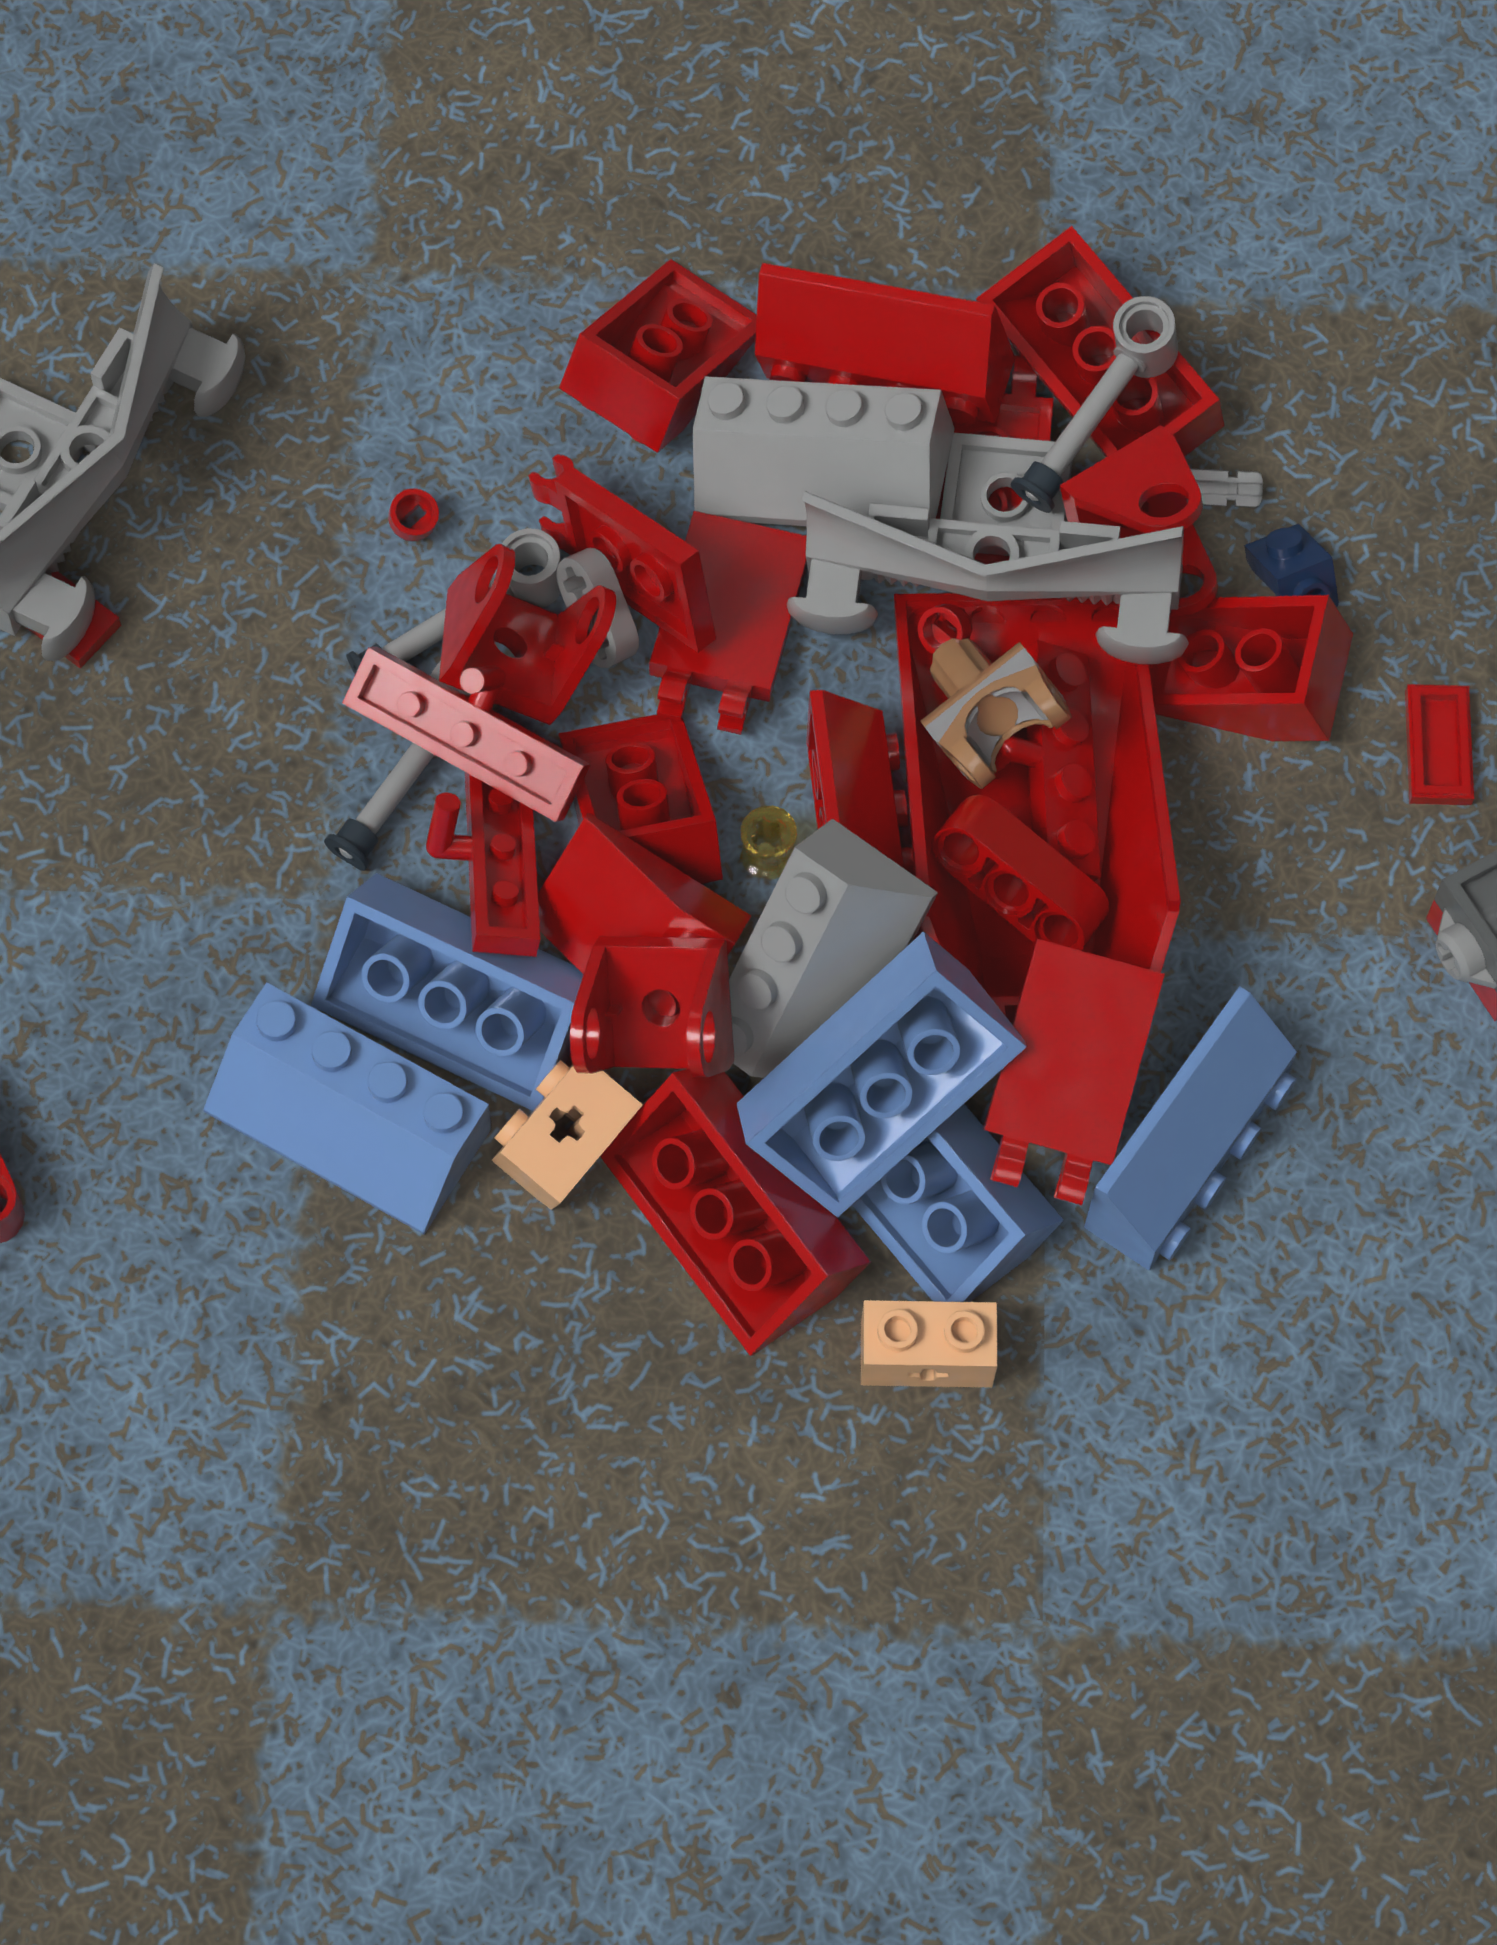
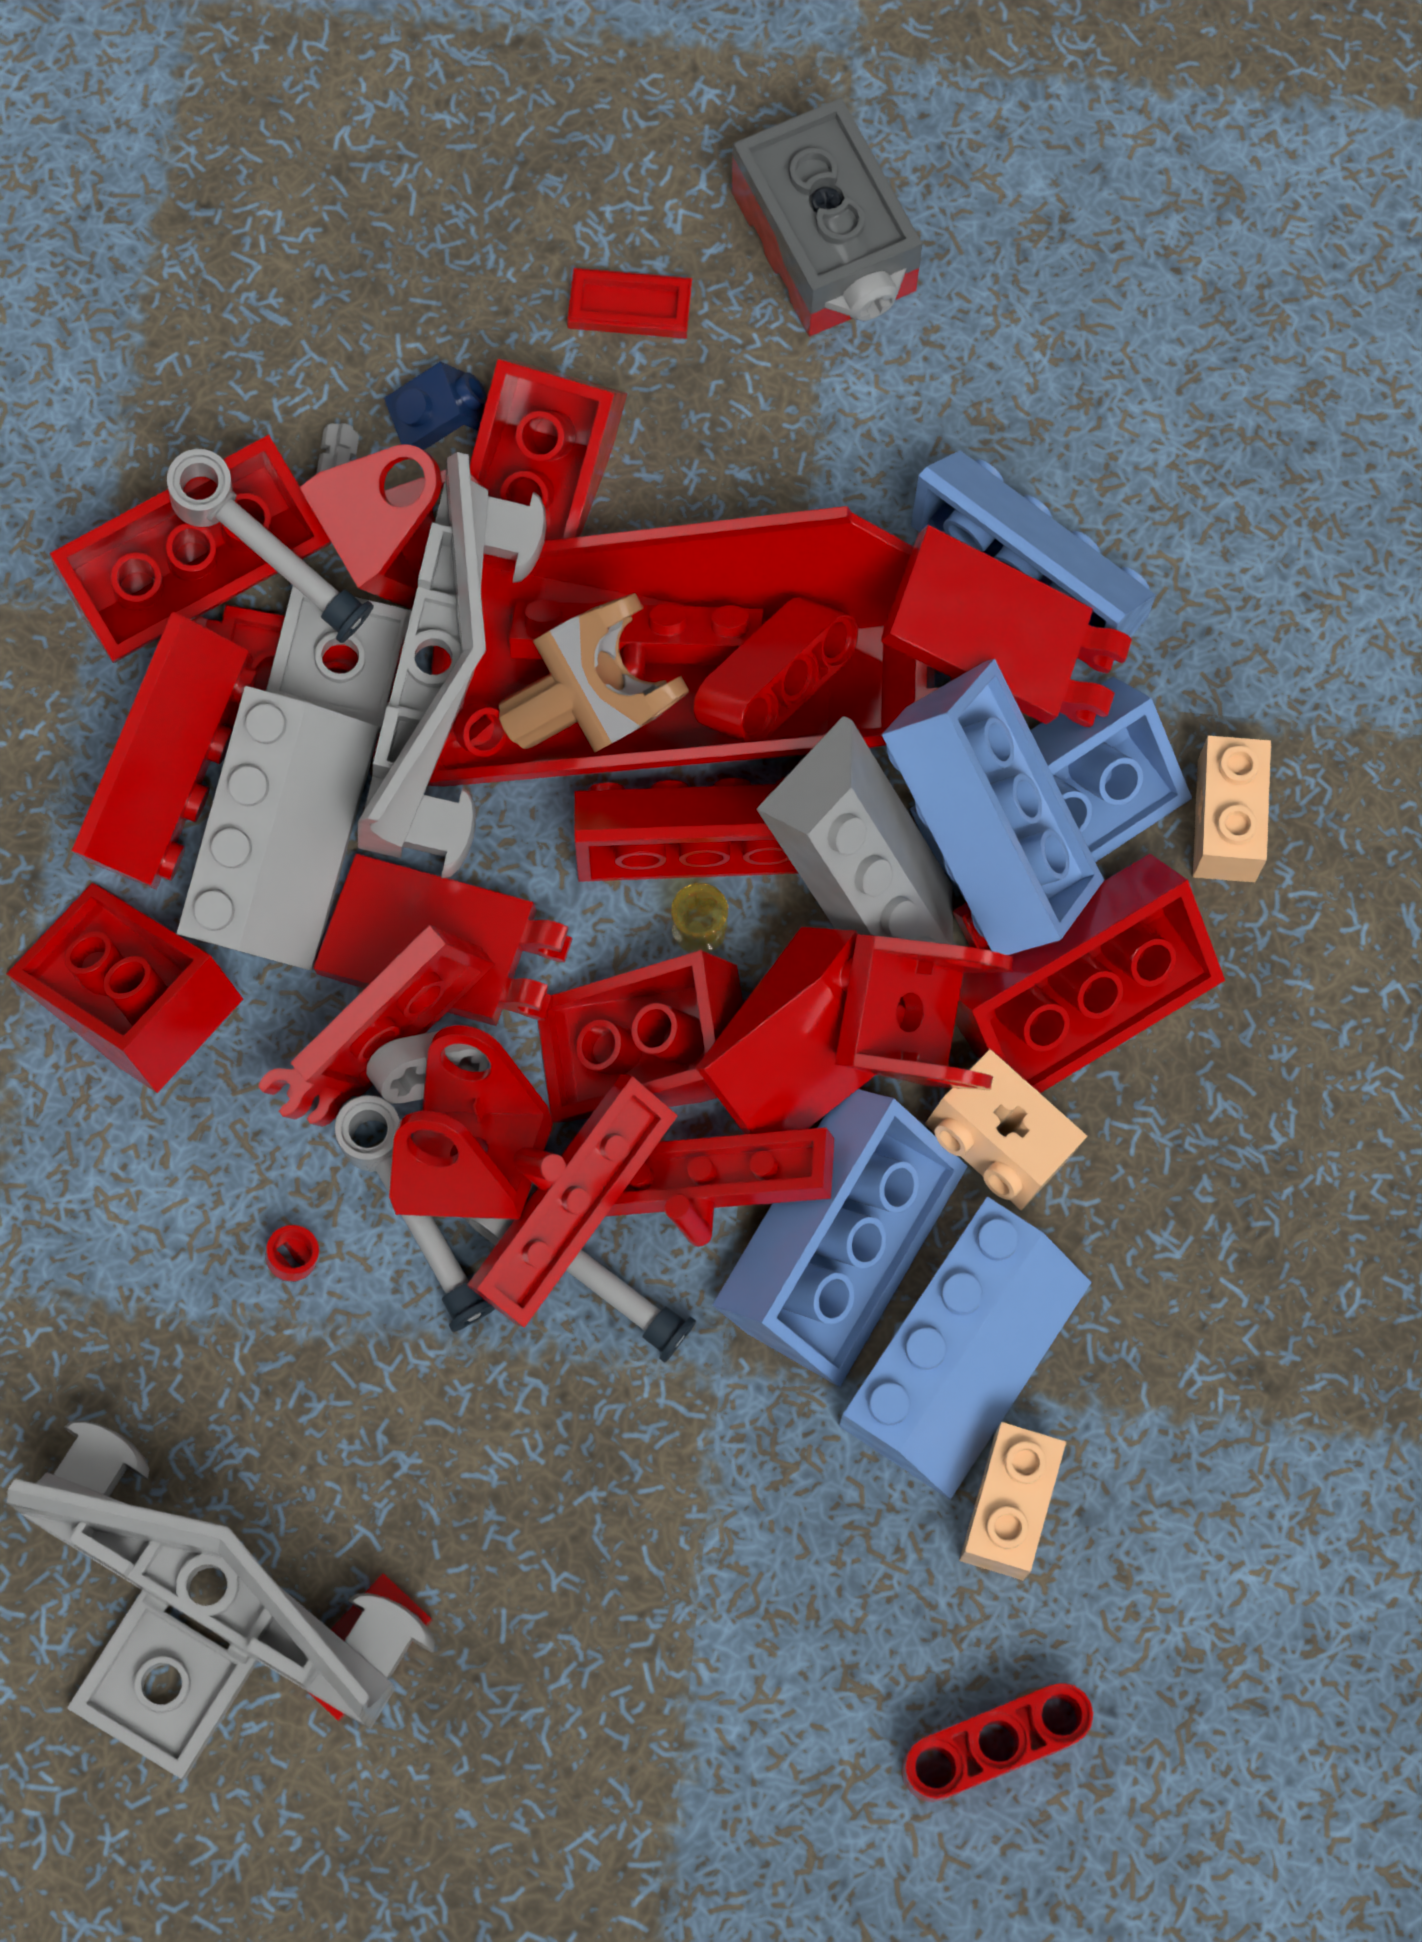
camera: 85 degrees left, 5 degrees up
(195, 1153) = (1012, 1501): none -> light nougat brick

